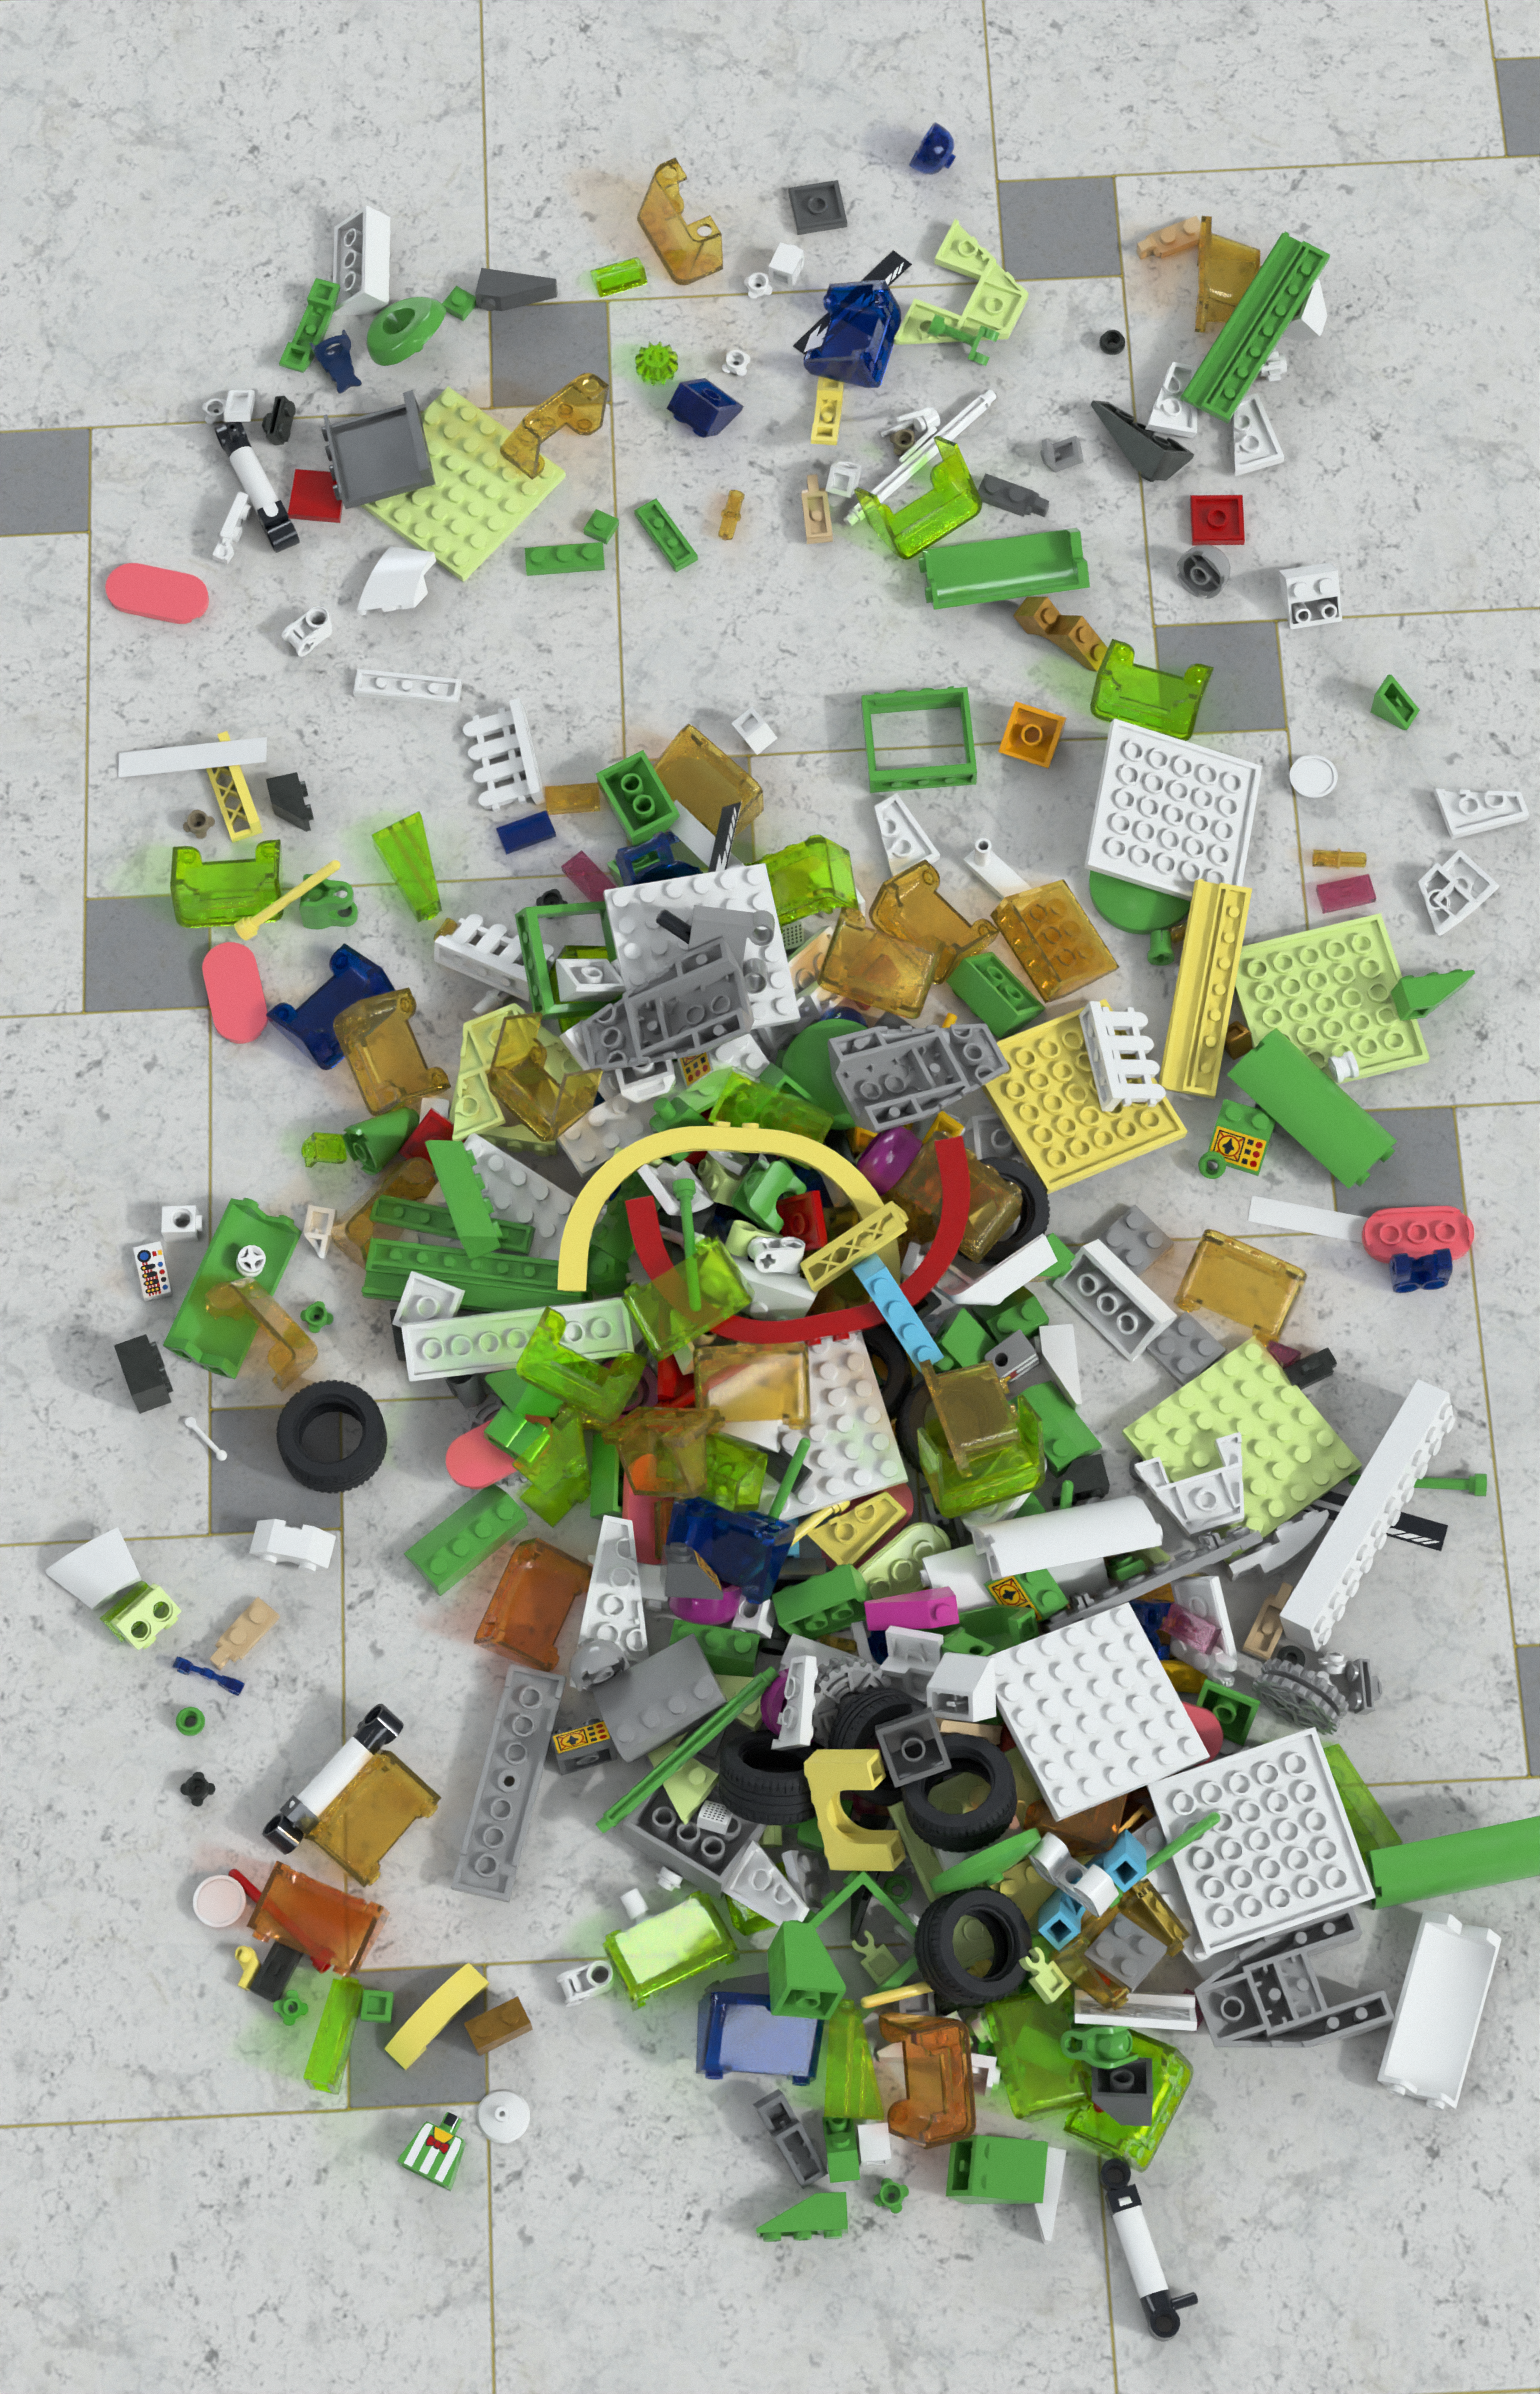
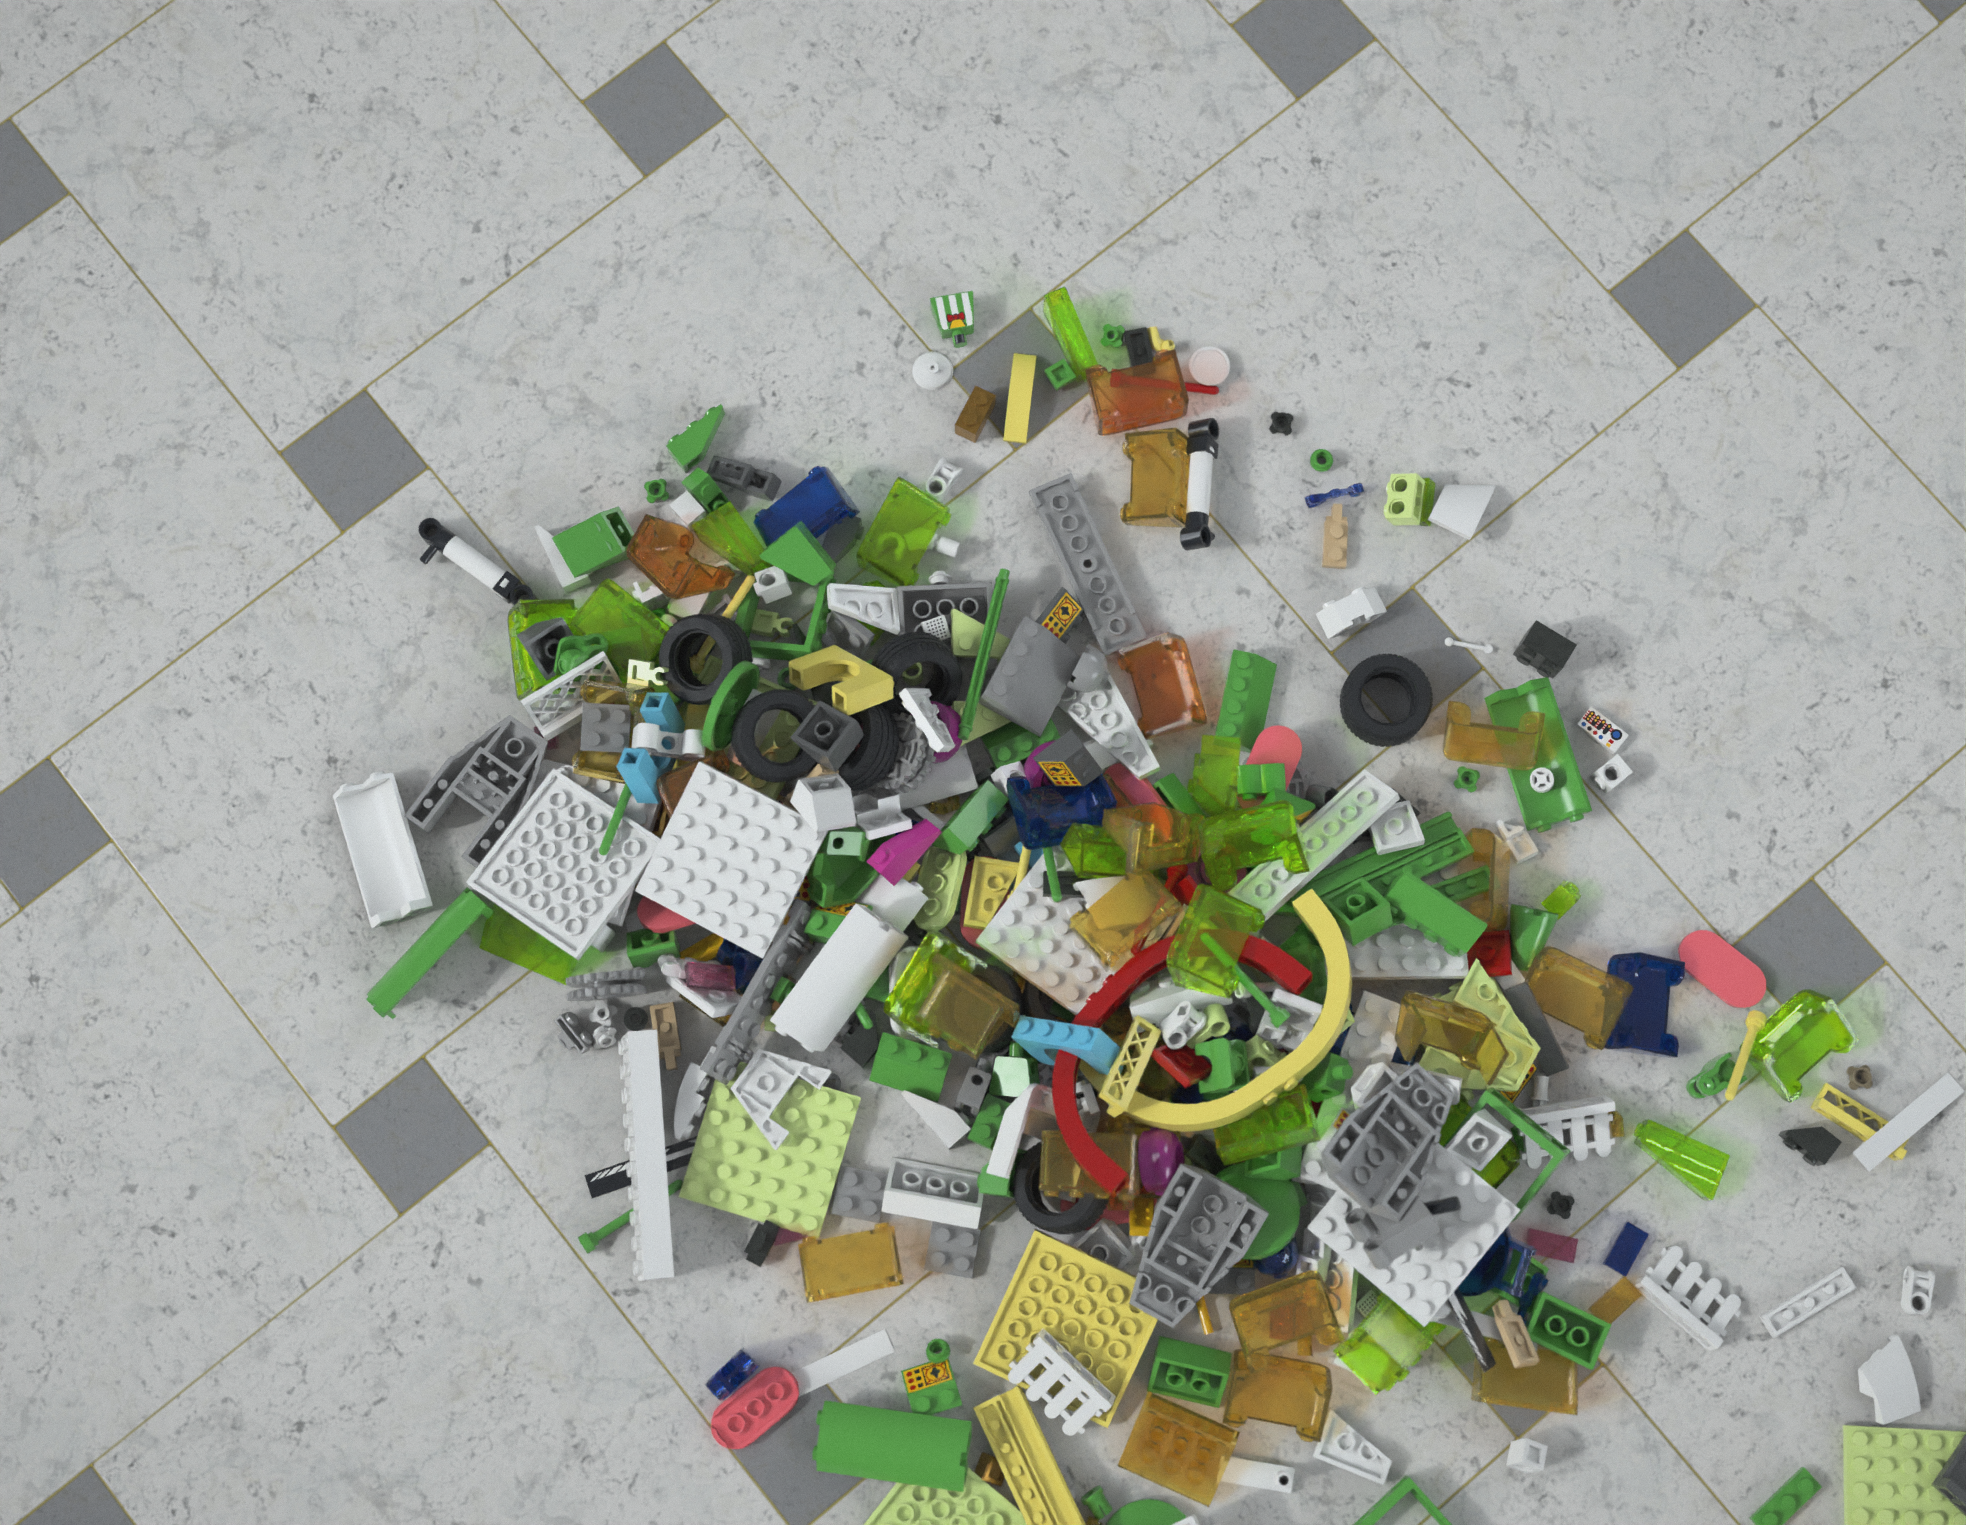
camera: 140 degrees right, 10 degrees up
(446, 1053) = (1531, 1015): none -> dark grey tile
(528, 1247) = (1359, 910): none -> bright green slope
(687, 818) = (1514, 1335): none -> tan hinge
(861, 1973) = (776, 591): none -> white brick
(1343, 1067) = (893, 1497): white wheel -> none

